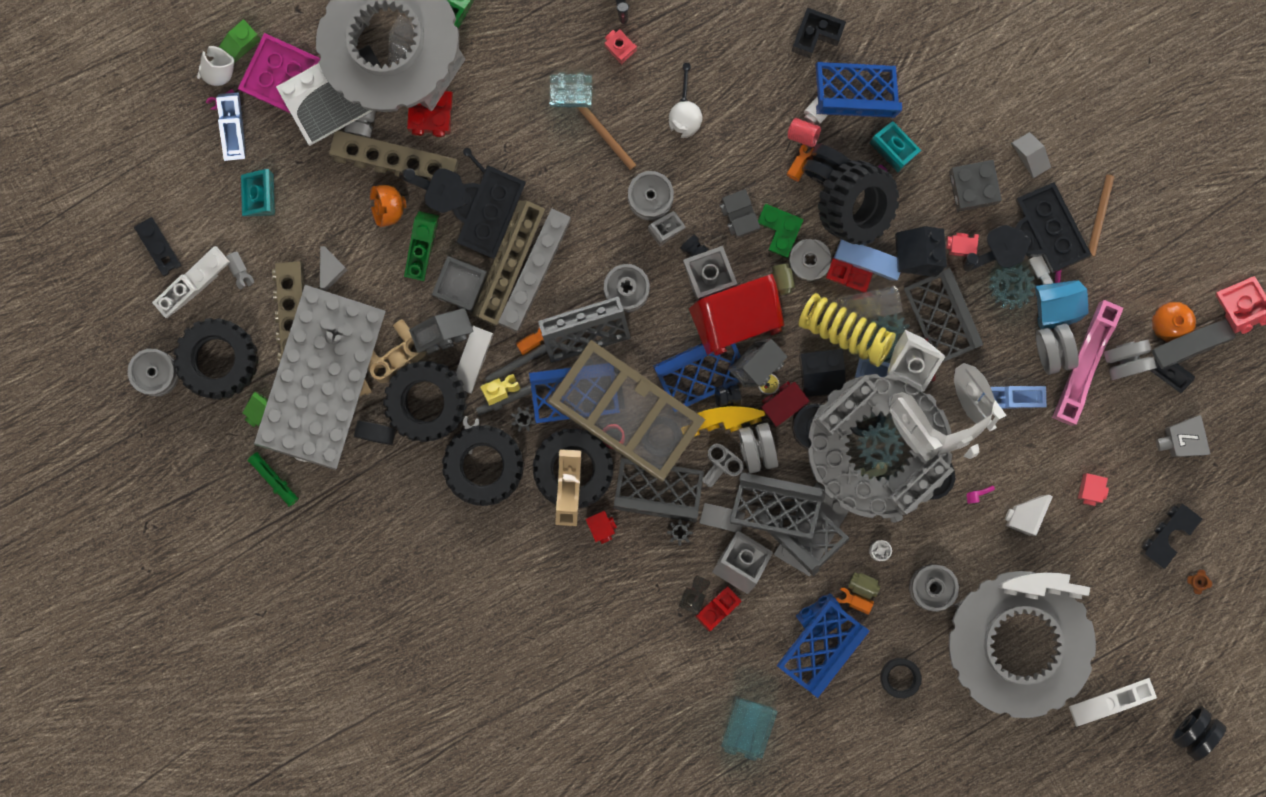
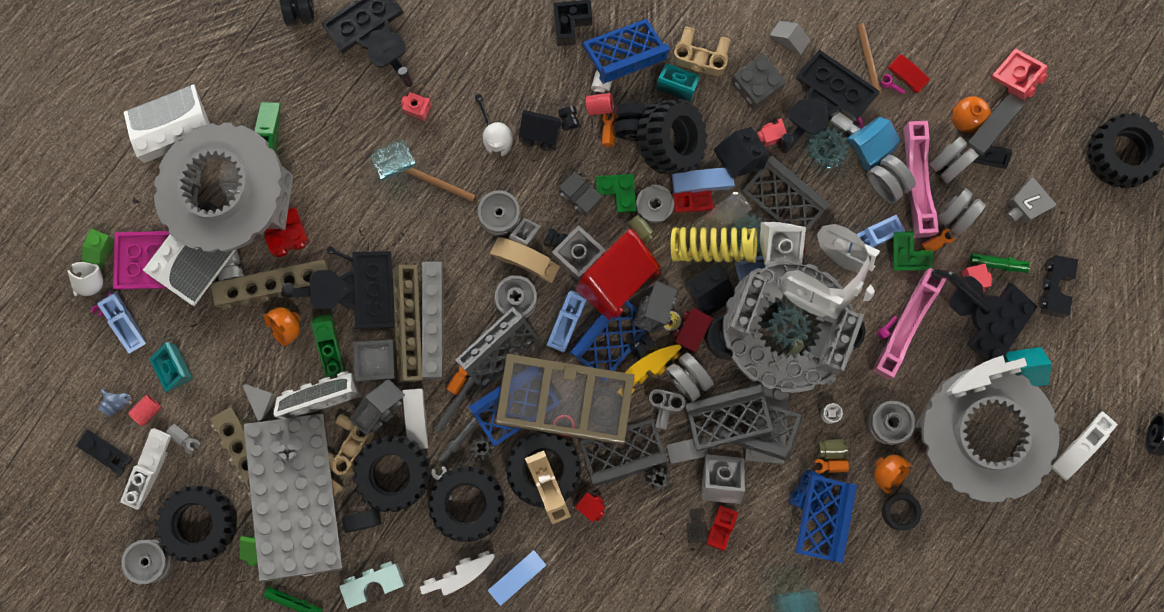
camera: 25 degrees left, 5 degrees down
(189, 202) = (114, 402): none -> sand blue animal
(215, 224) = (144, 410): none -> coral piece
(375, 498) = (355, 590): none -> light aqua arch
(388, 292) = (317, 397): none -> white slope
(452, 530) = (467, 572): none -> white slope
(497, 390) = (449, 434): light yellow plate -> none
(498, 559) = (517, 577): none -> light blue slope
(654, 252) = (525, 257): none -> tan arch
(665, 335) = (567, 321): none -> light blue slope
(730, 131) = (539, 130): none -> black slope
(766, 131) = (569, 118): none -> black wheel
(909, 634) = (891, 472): none -> orange cylinder
(928, 134) = (699, 58): none -> tan piece
(1001, 500) = (903, 332): none -> bright pink arch
(1028, 515) = (938, 325): white slope -> none
(1033, 433) = (905, 257): none -> green plate
(1070, 433) = (936, 242): none -> orange bar
(1097, 537) = (995, 317): none -> black plate
(1103, 600) = (1038, 365): none -> teal slope
(1109, 252) = (890, 84): none -> dark pink hand
(1110, 415) = (963, 213): none -> light grey wheel
(1131, 489) = (1006, 264): none -> green pin
(1132, 249) = (908, 72): none -> red slope
(1205, 582) = (1106, 311): dark orange plate -> none

